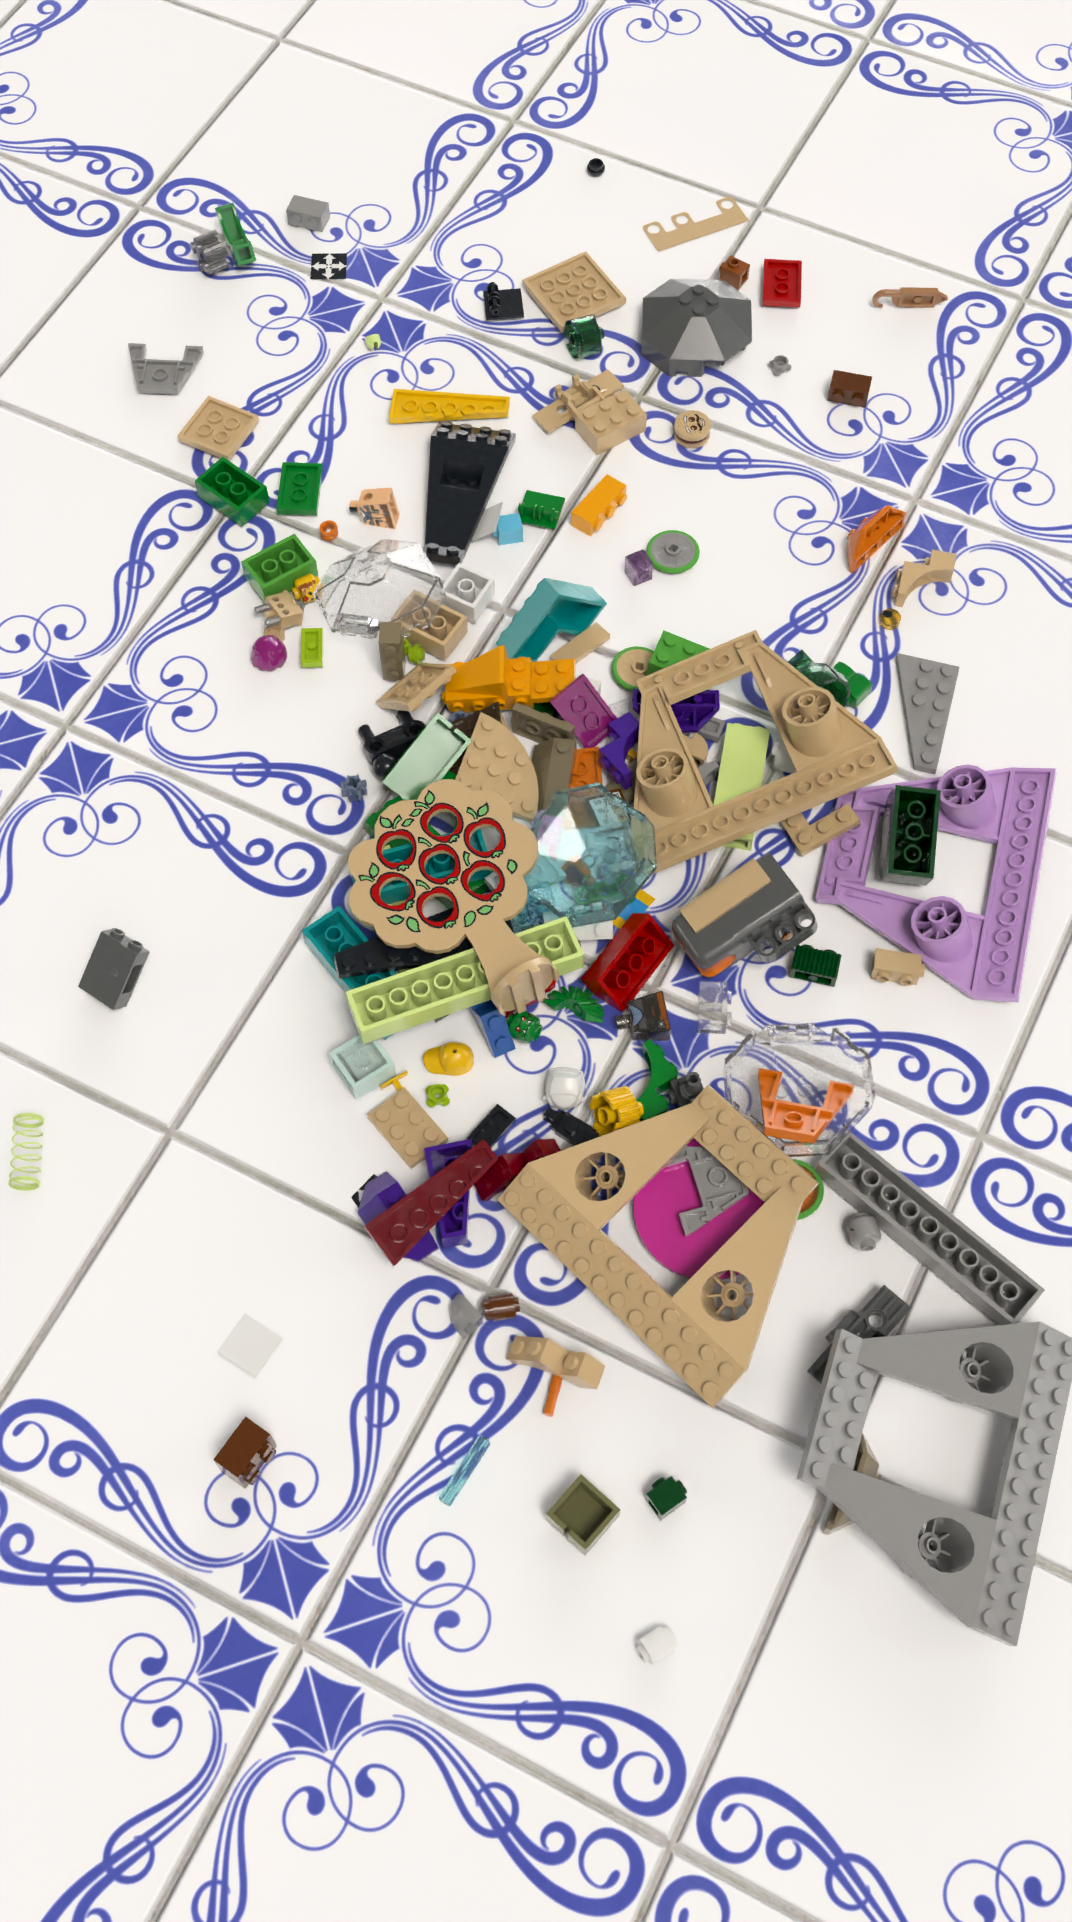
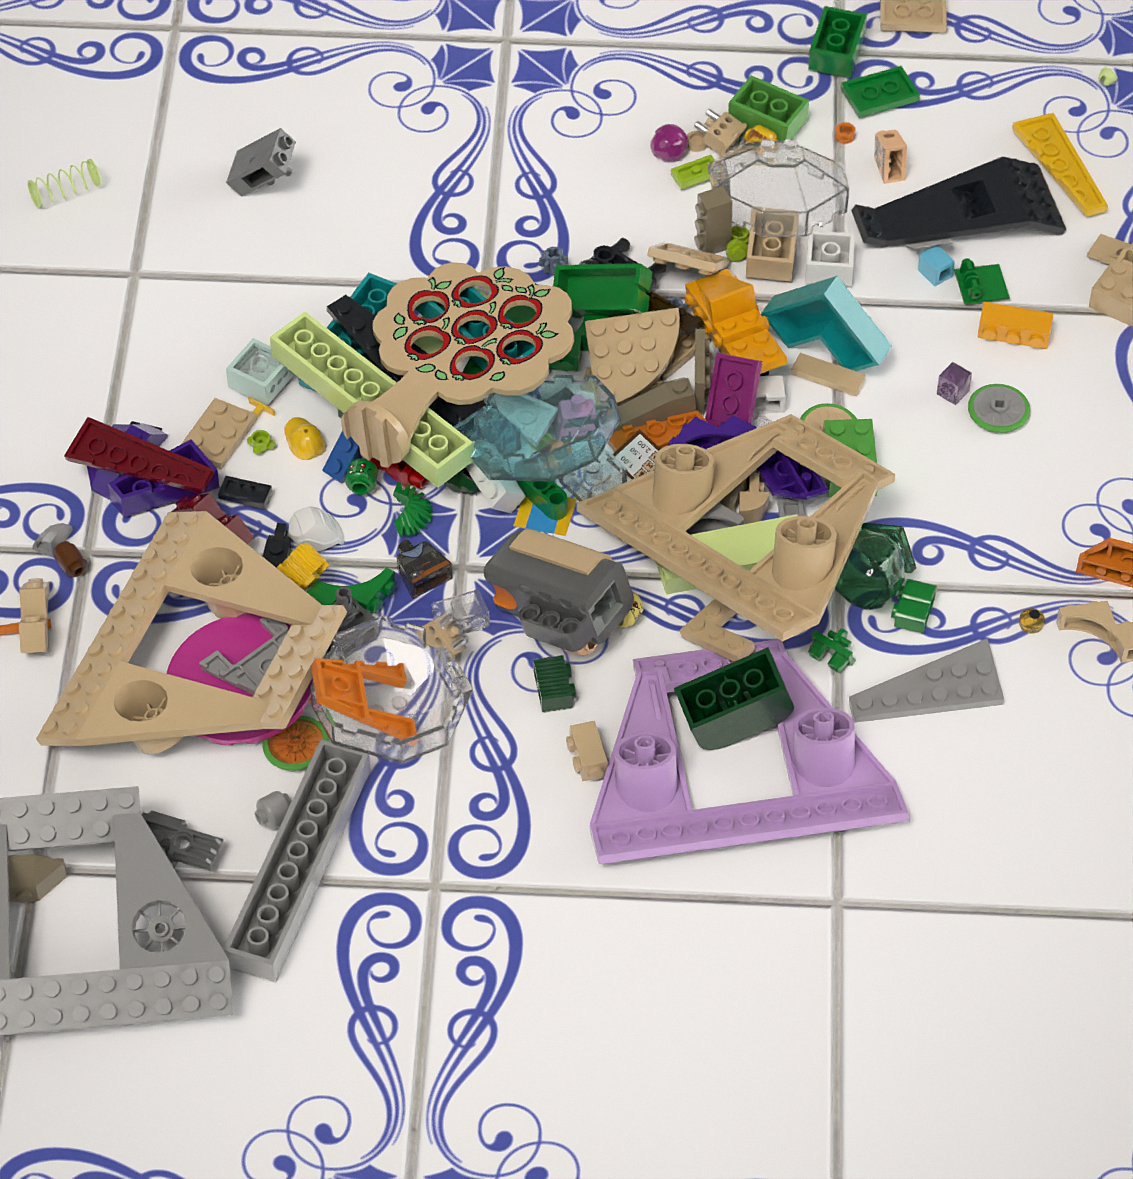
camera: 65 degrees right, 10 degrees down
(628, 961) = (470, 530): red slope -> none
(740, 1024) = (443, 633): none -> tan piece

